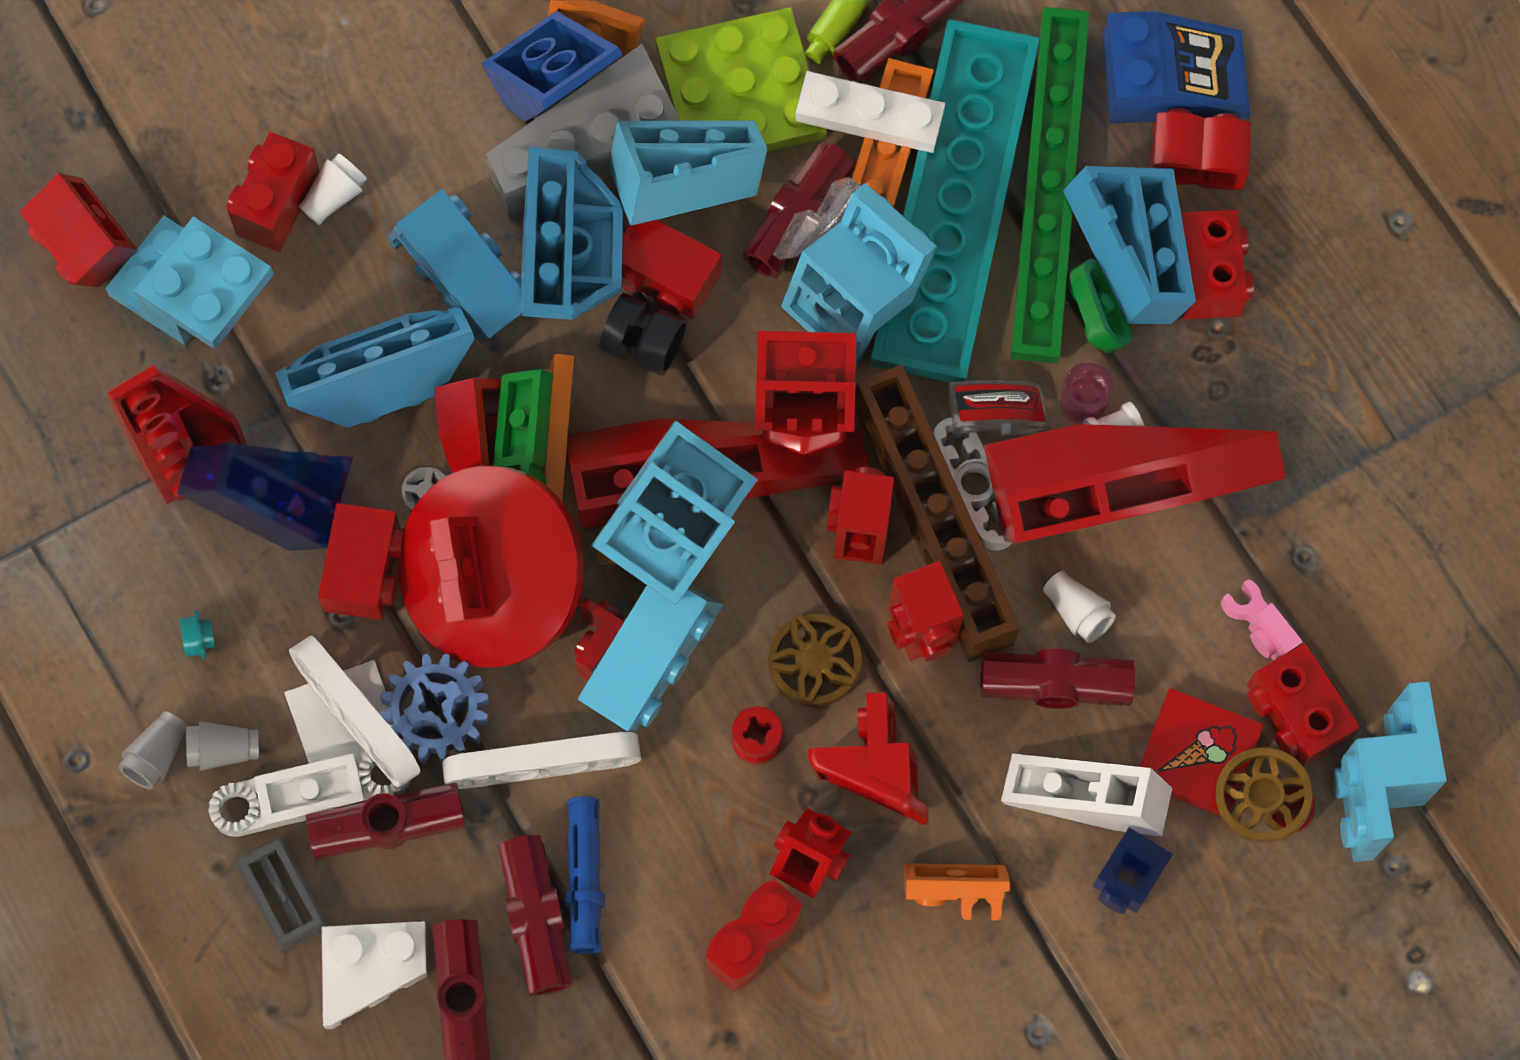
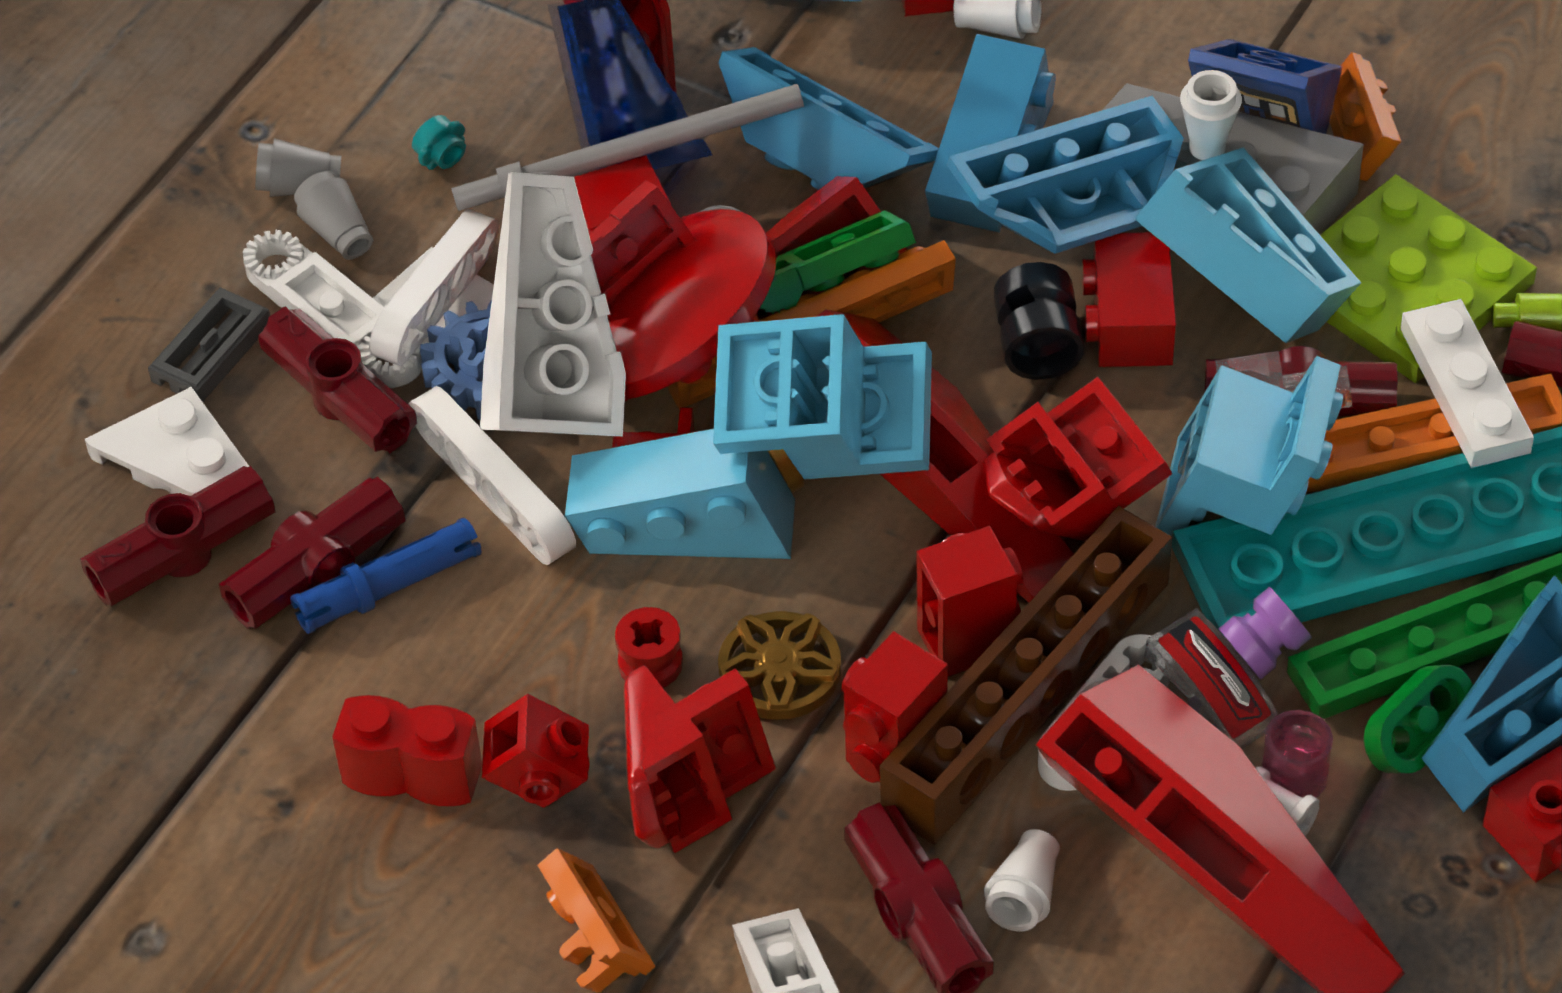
camera: 65 degrees right, 20 degrees down
(297, 604) = (635, 144): none -> light grey bar
(504, 665) = (548, 329): none -> white wedge
(585, 121) = (1209, 111): none -> white cone
(993, 354) = (1261, 635): none -> medium lavender wheel

